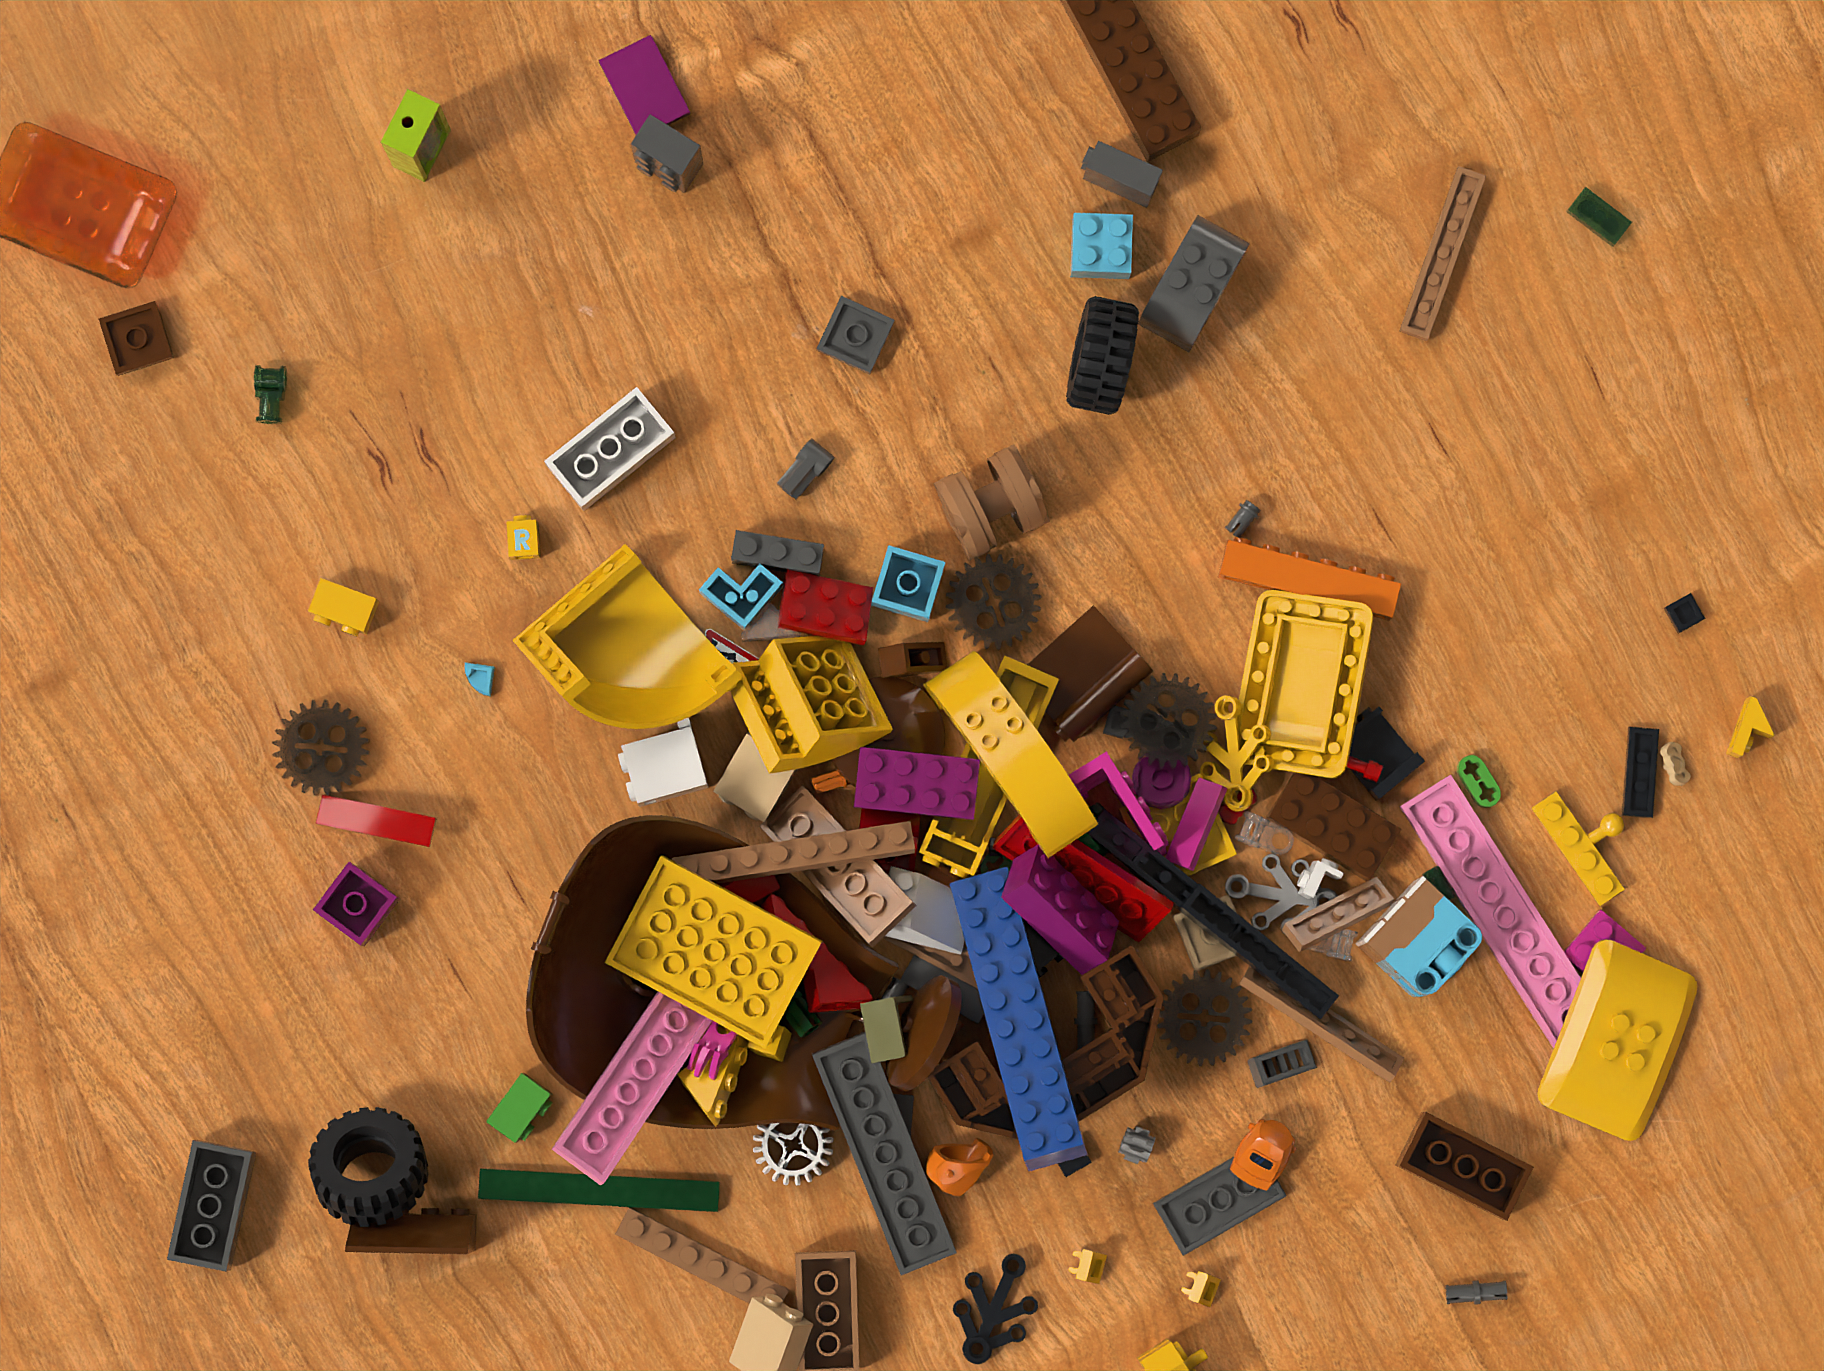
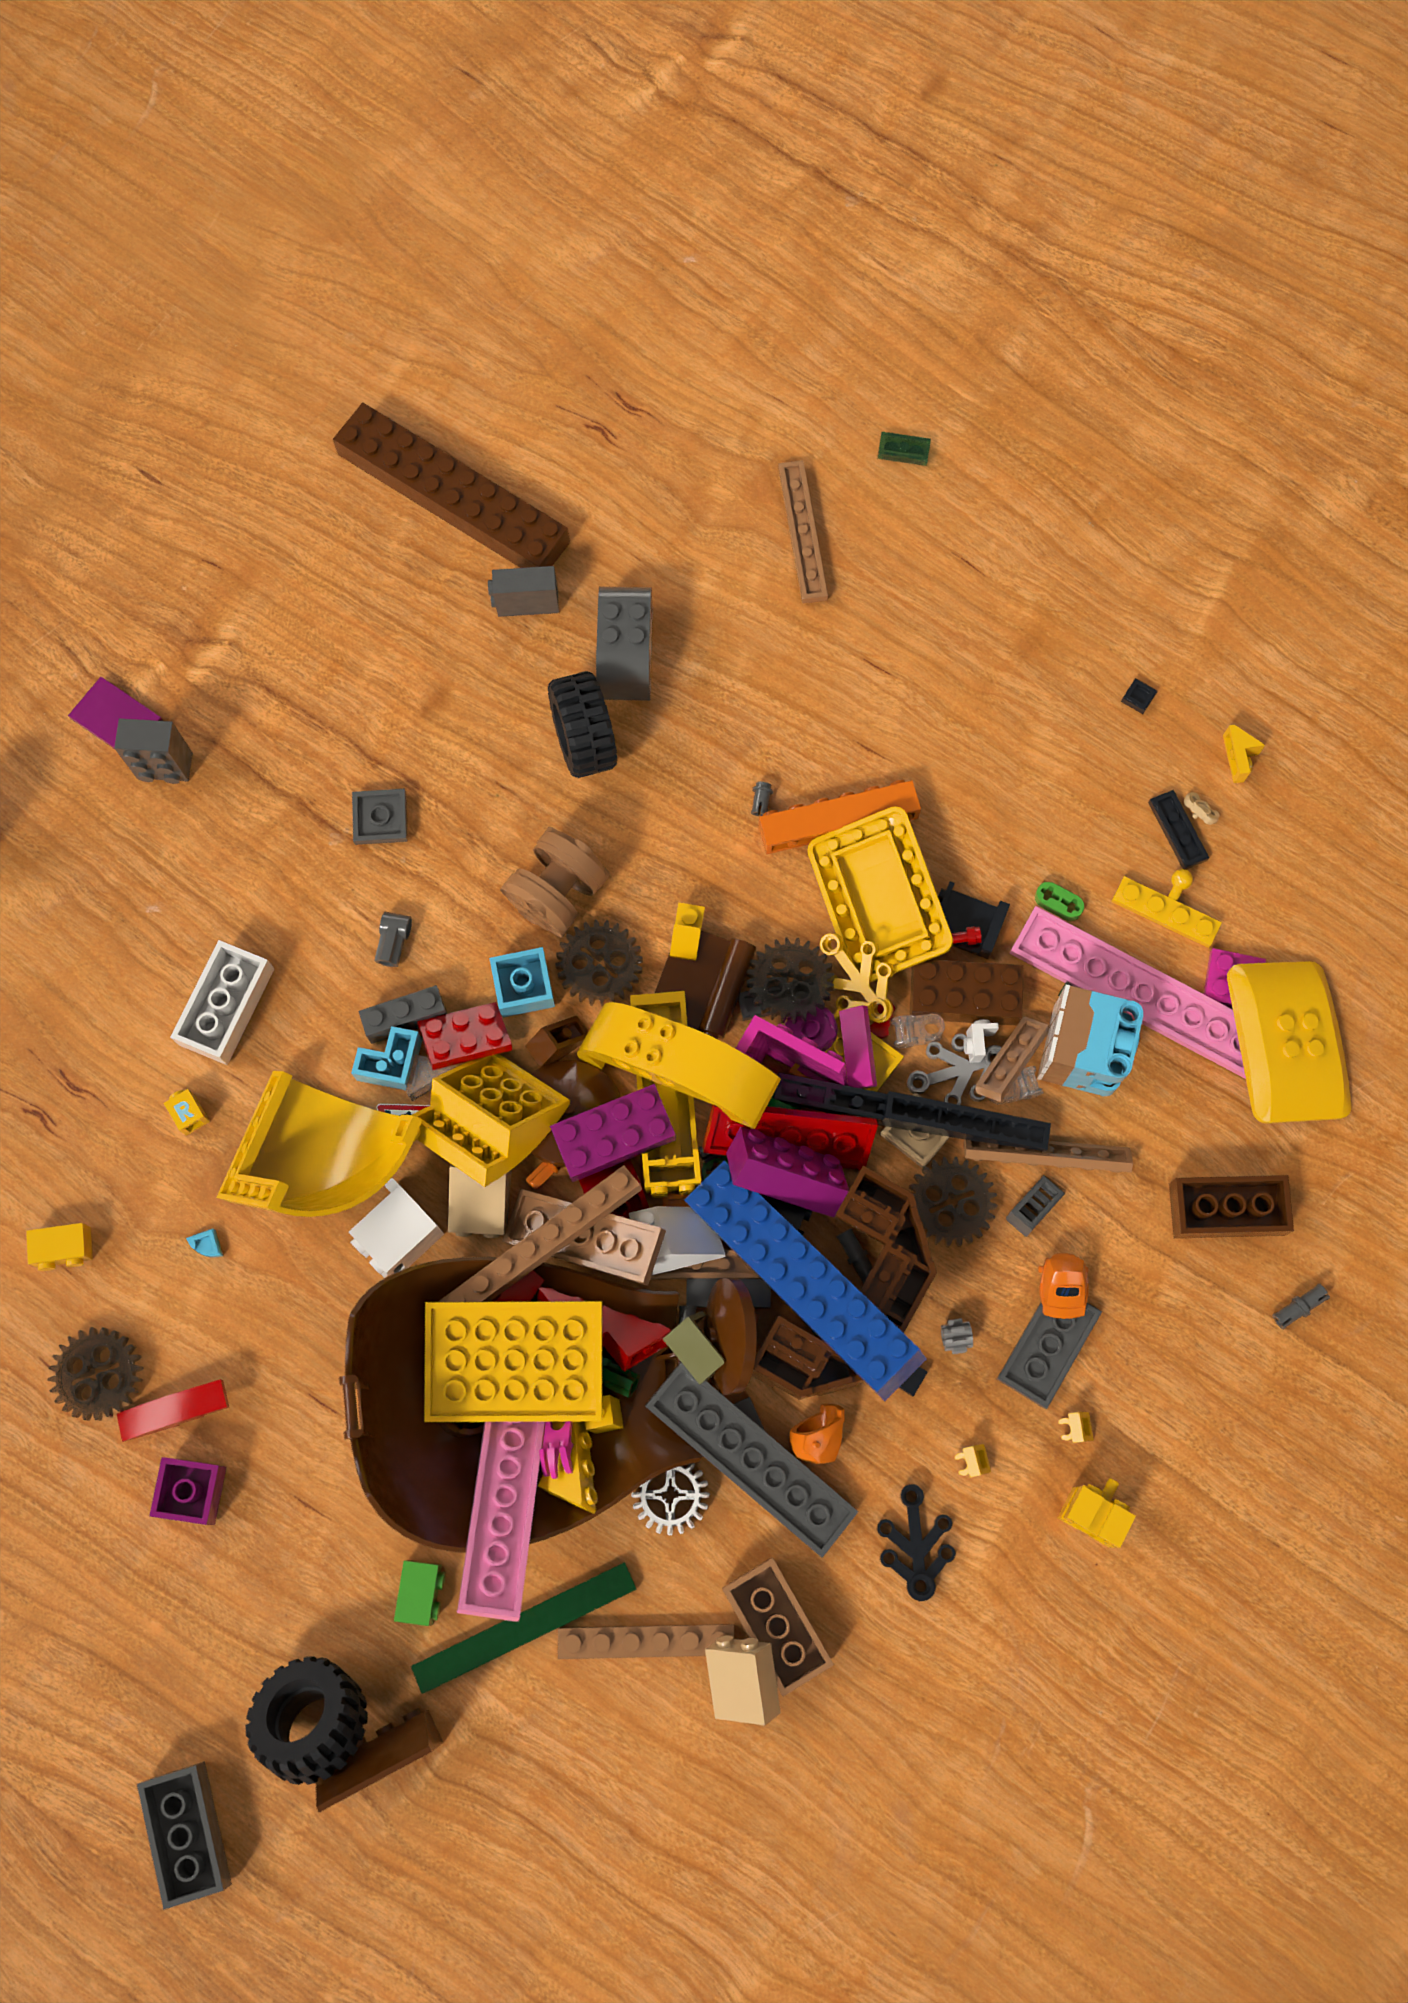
camera: 20 degrees left, 10 degrees down
(1095, 618) = (687, 931): none -> yellow slope
(1101, 245) = (538, 653): medium azure brick -> none

